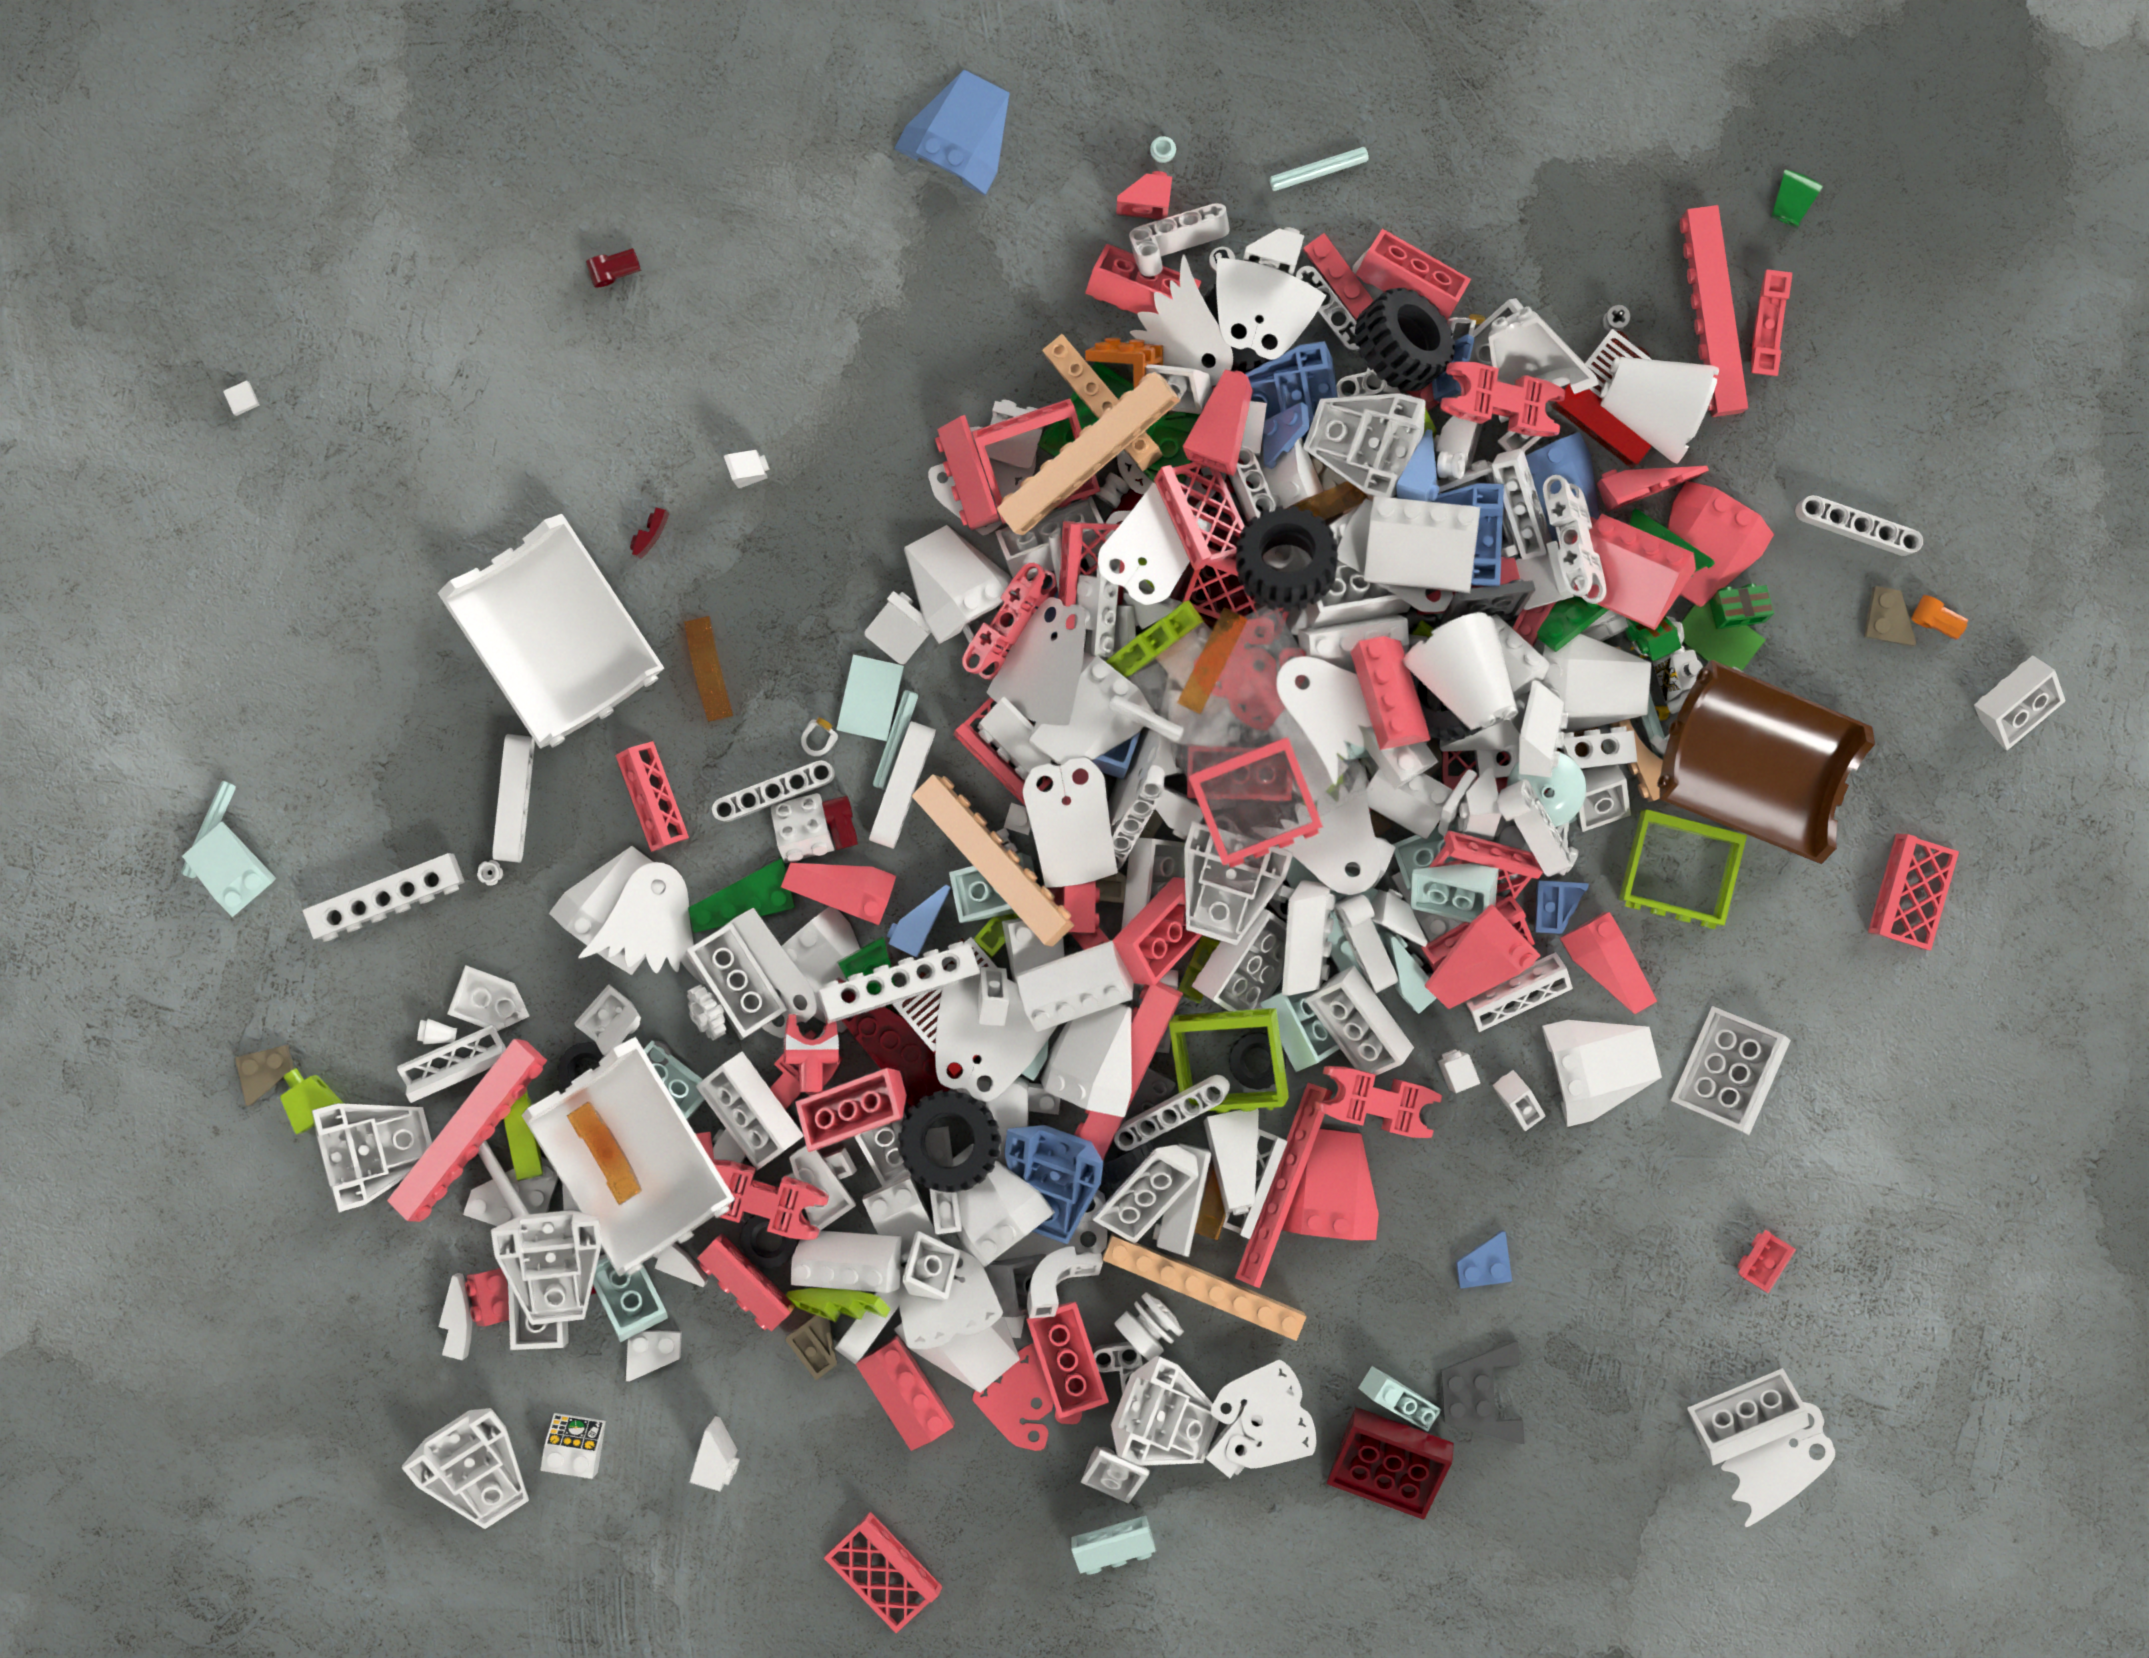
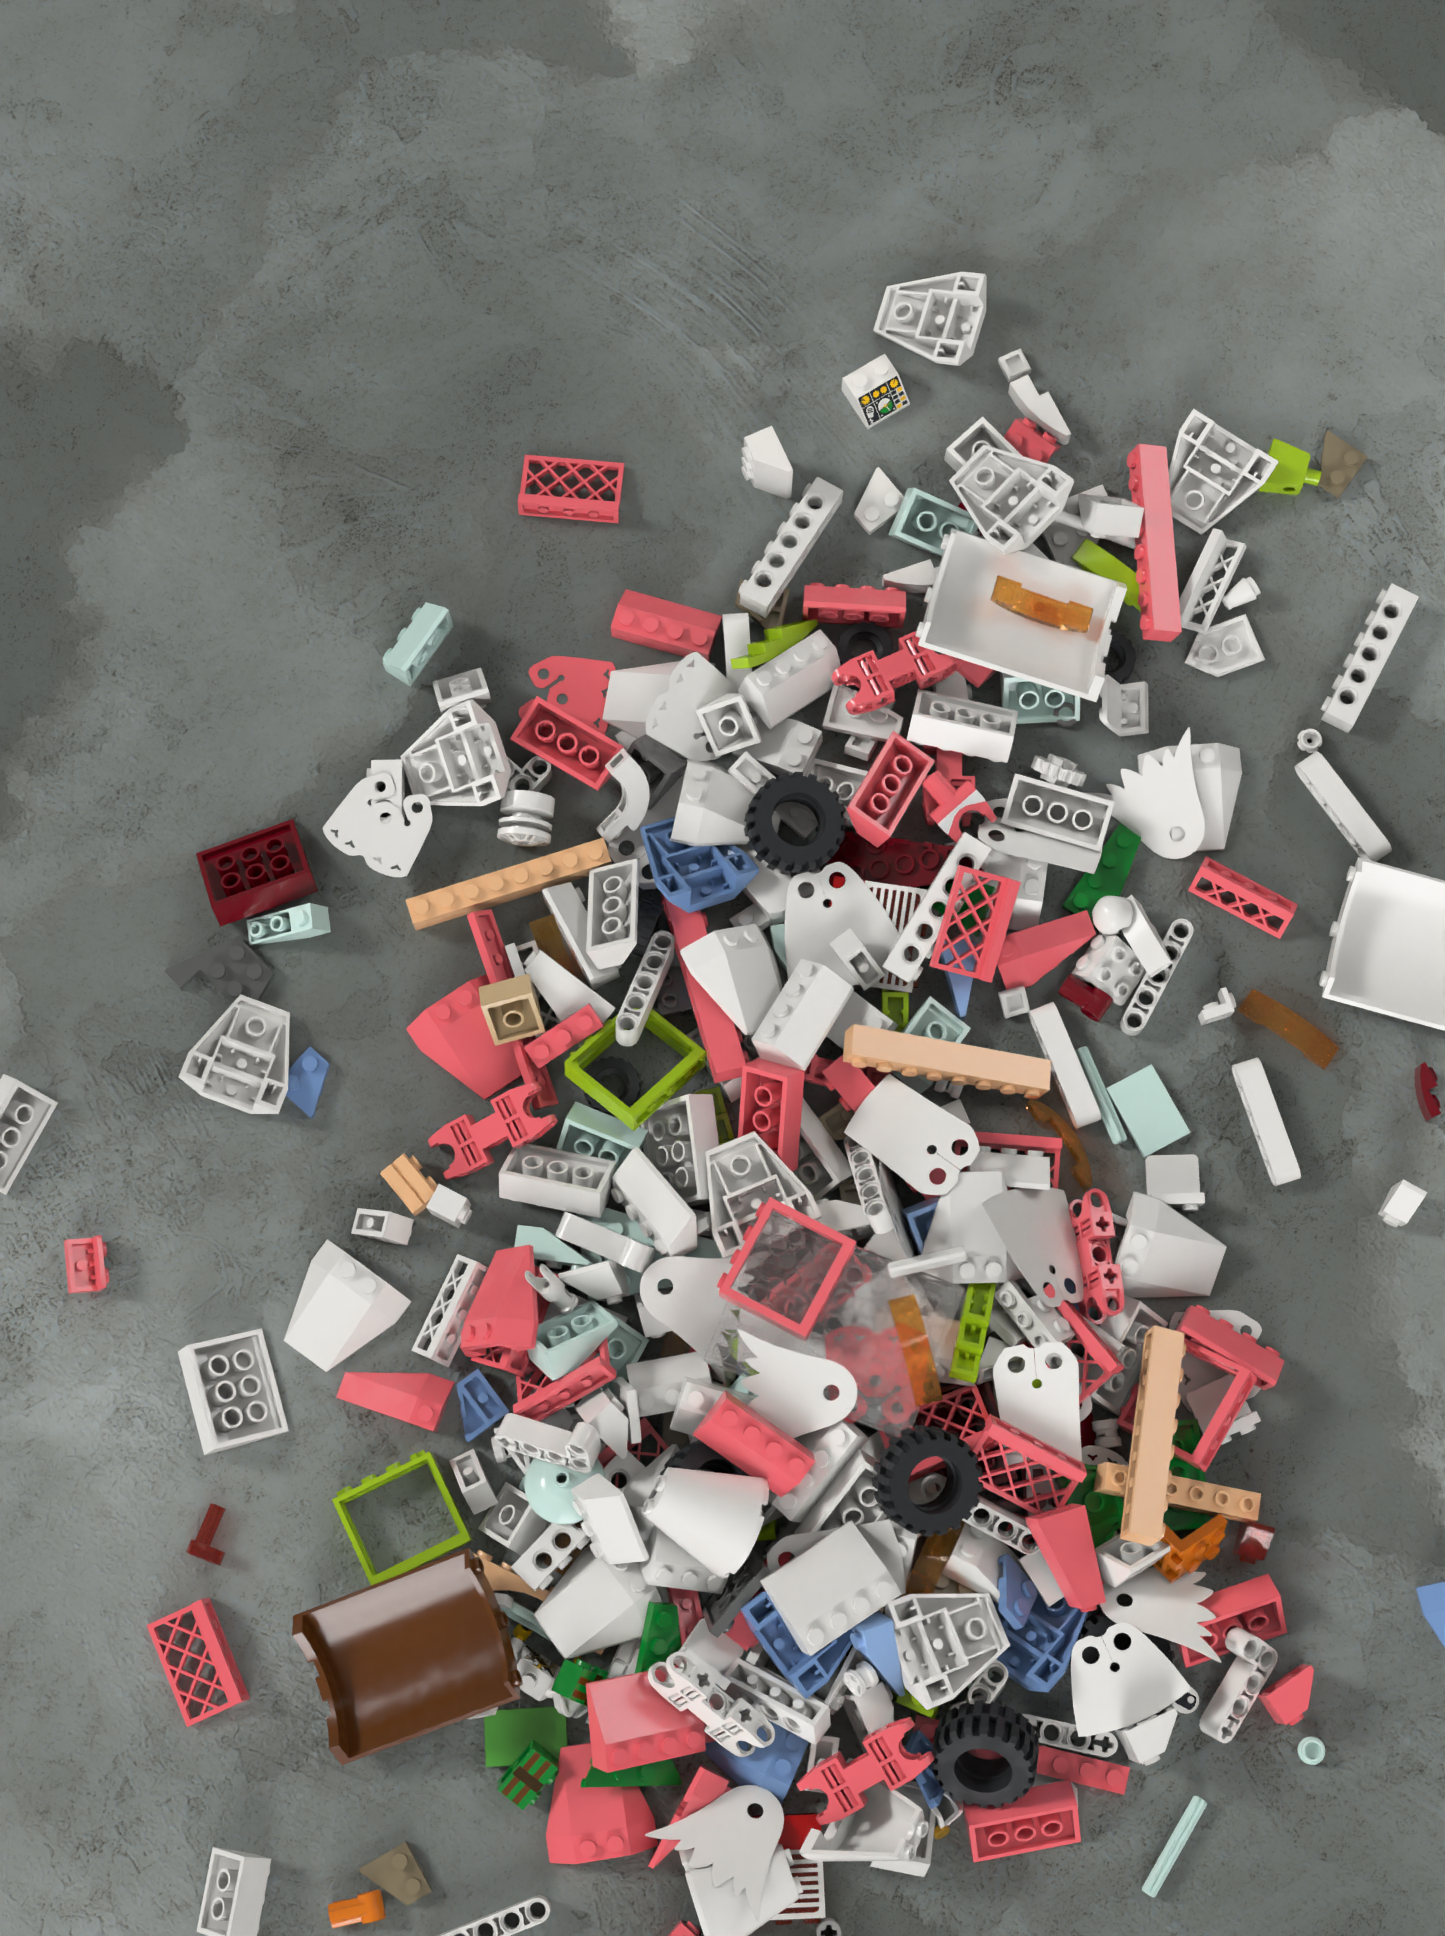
camera: 140 degrees right, 10 degrees down
(442, 1373) = (1014, 365): none -> white tile
(483, 1181) = (1110, 516): none -> white slope
(752, 727) = (1214, 1011): none -> white bracket
(758, 830) = (1146, 941): none -> white slope
(765, 866) = (1112, 914): none -> white hair
(789, 614) = (1266, 1121): none -> white beam
(814, 1347) = (763, 599): none -> white brick
(831, 741) = (1162, 1058): white piece -> none
(873, 925) = (993, 933): none -> coral fence
(897, 865) = (1014, 1001): none -> white tile
(959, 696) = (1042, 1115): none -> clear orange slope
(1076, 323) = (1253, 1541): none -> clear red slope
(1264, 1128) = (564, 1035): none -> coral plate
(1289, 1182) = (511, 1009): none -> tan slope
(1439, 938) = (553, 1290): none -> white piece
(1472, 1115) = (409, 1183): none -> light nougat brick
(1520, 1321) = (243, 1058): none -> white wedge
(1607, 851) = (473, 1481): none -> white slope
(1636, 434) = (732, 1839): none -> white piece
(1846, 973) = (201, 1545): none -> clear red piece

